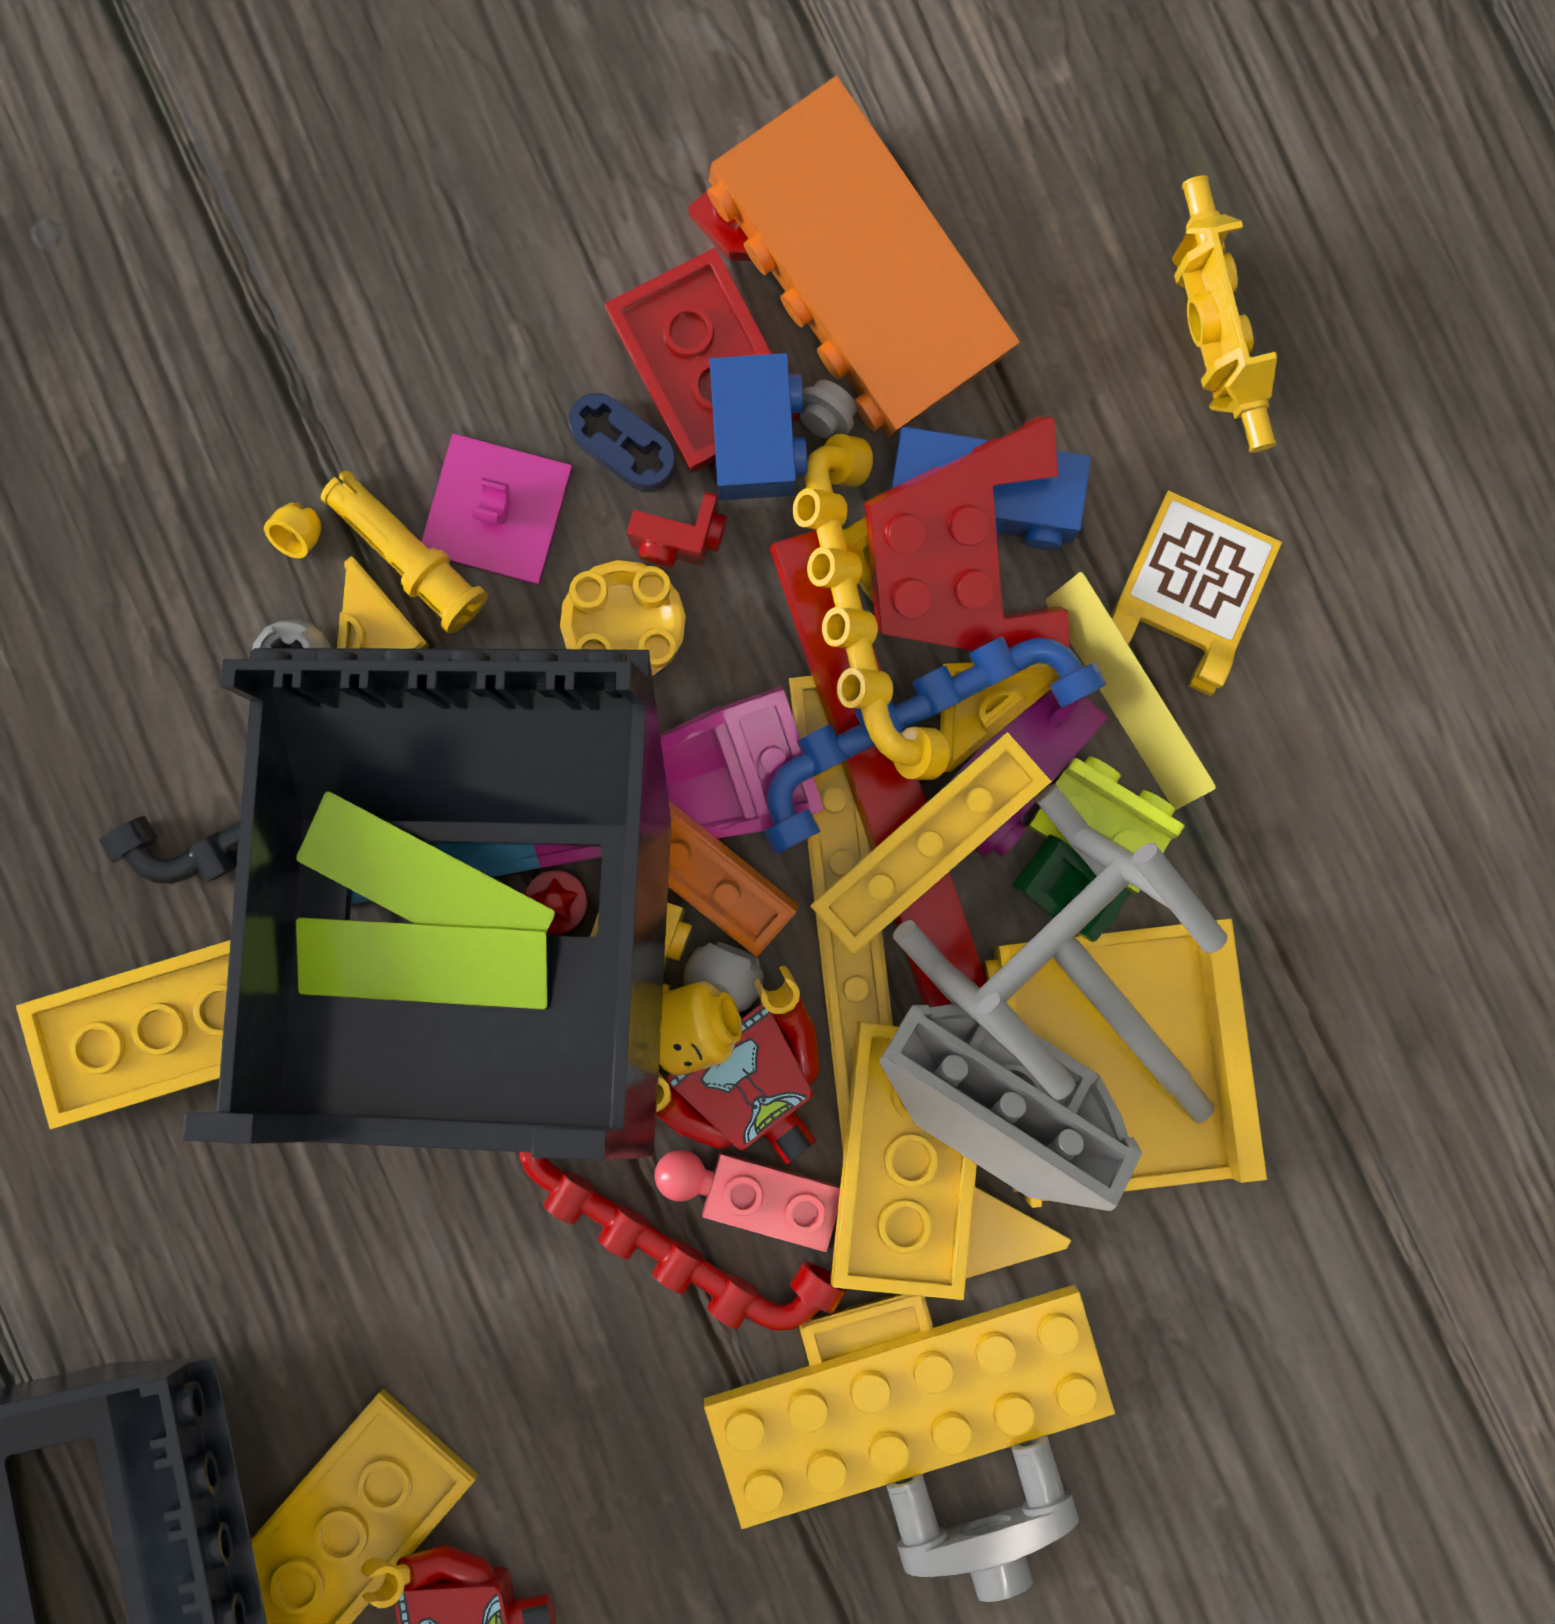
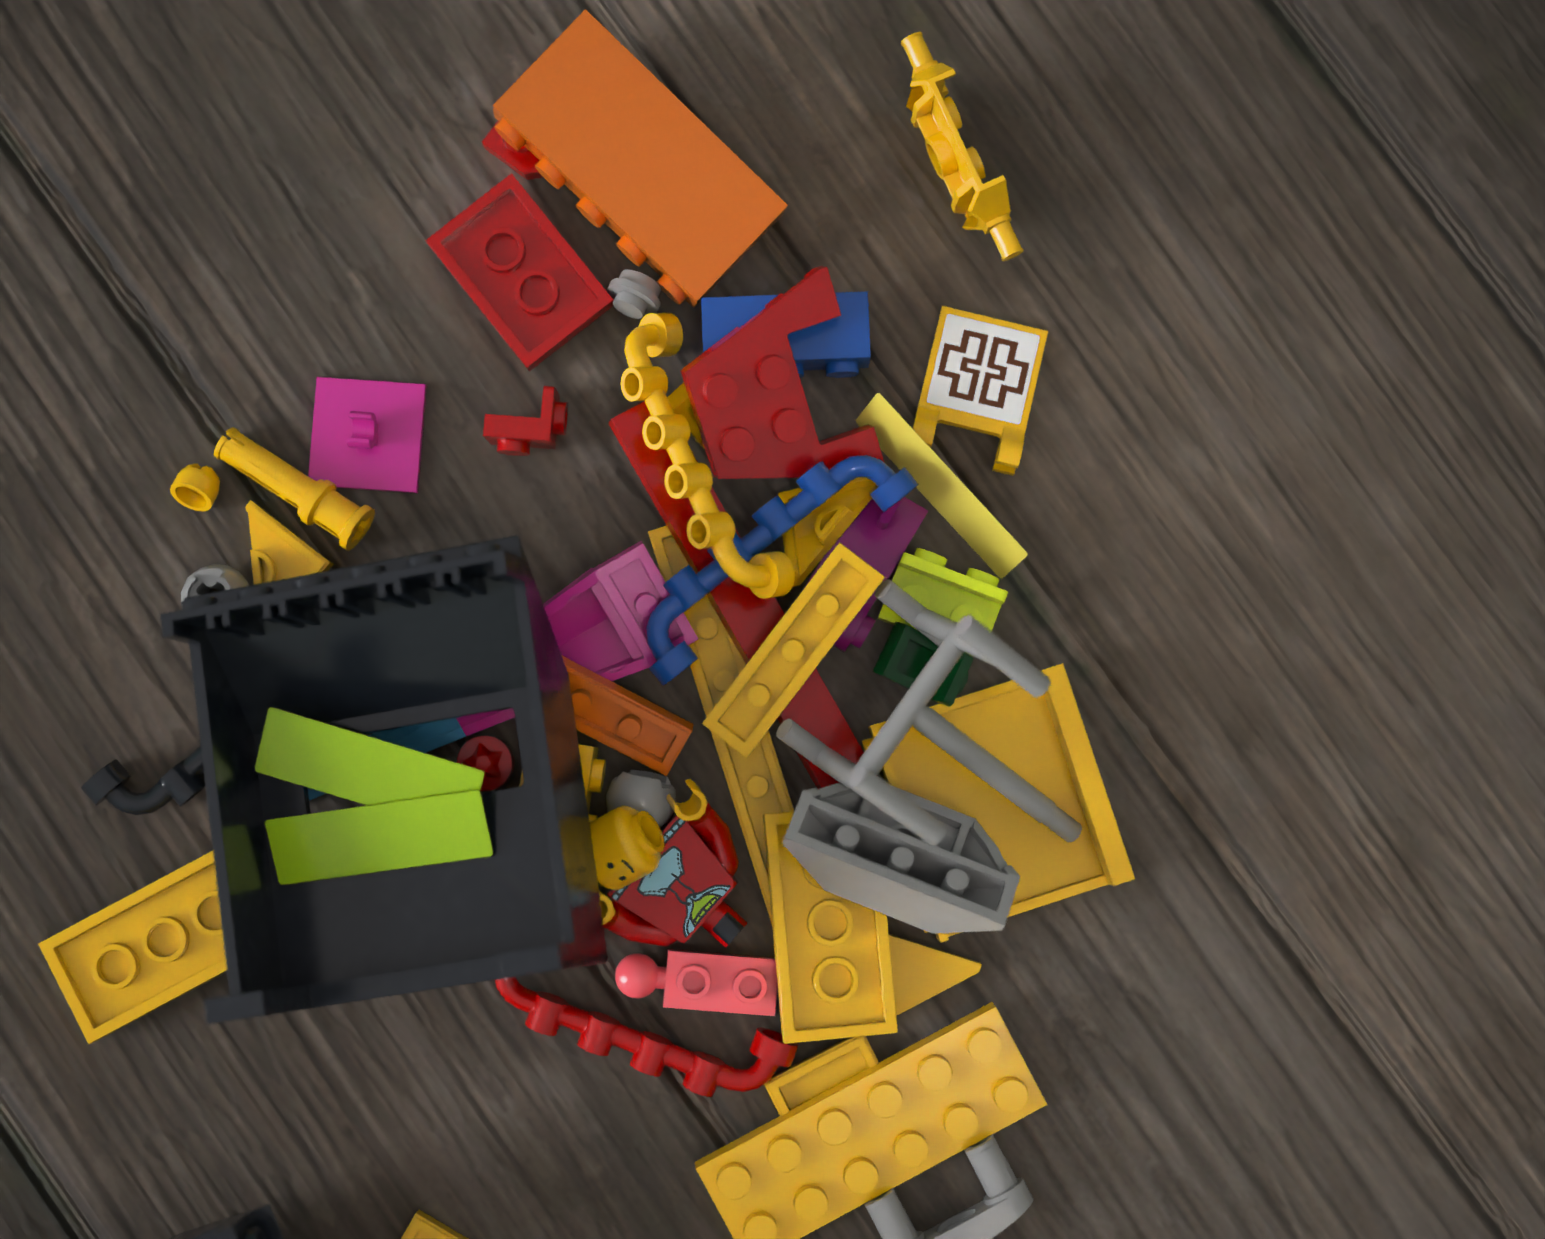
camera: 10 degrees left, 0 degrees up
(624, 609) = (495, 502): yellow dish -> none
(631, 431) = (471, 345): dark blue beam -> none
(754, 426) = (574, 323): blue brick -> none

